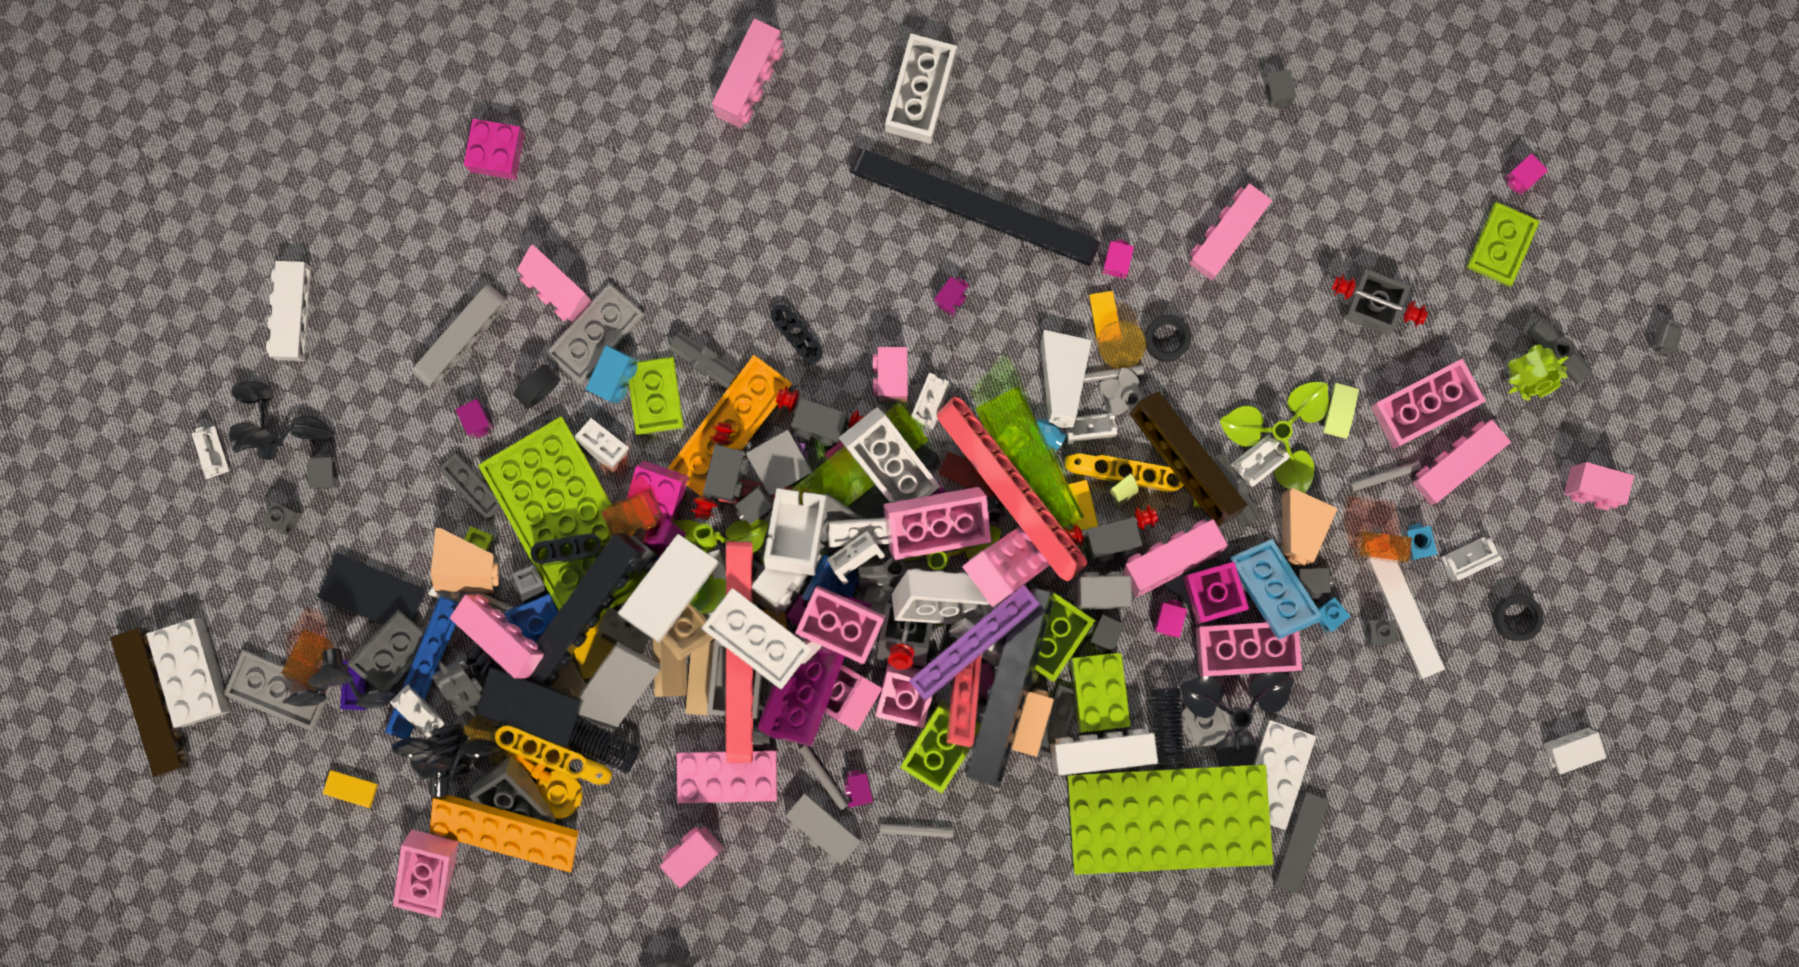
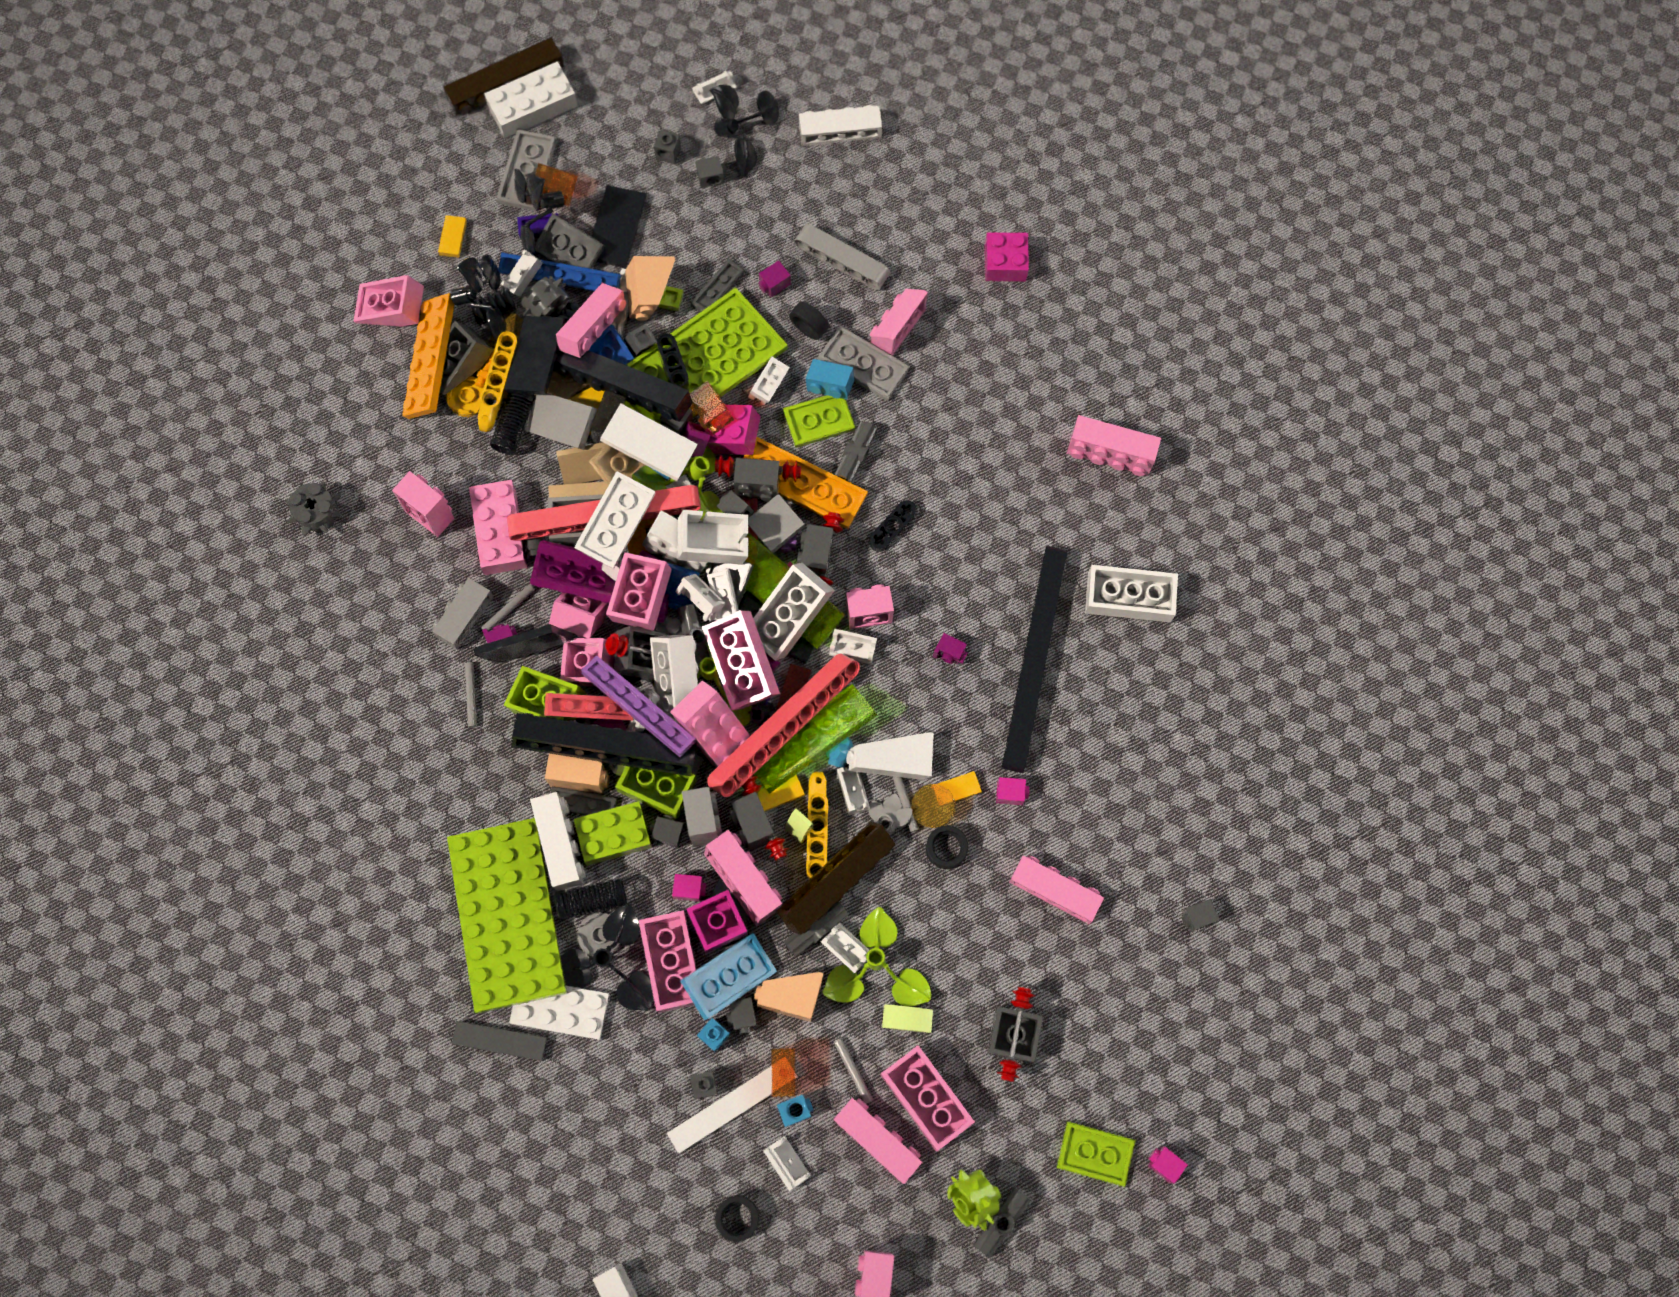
camera: 75 degrees right, 10 degrees down
(877, 761) = (523, 643): none -> black tile

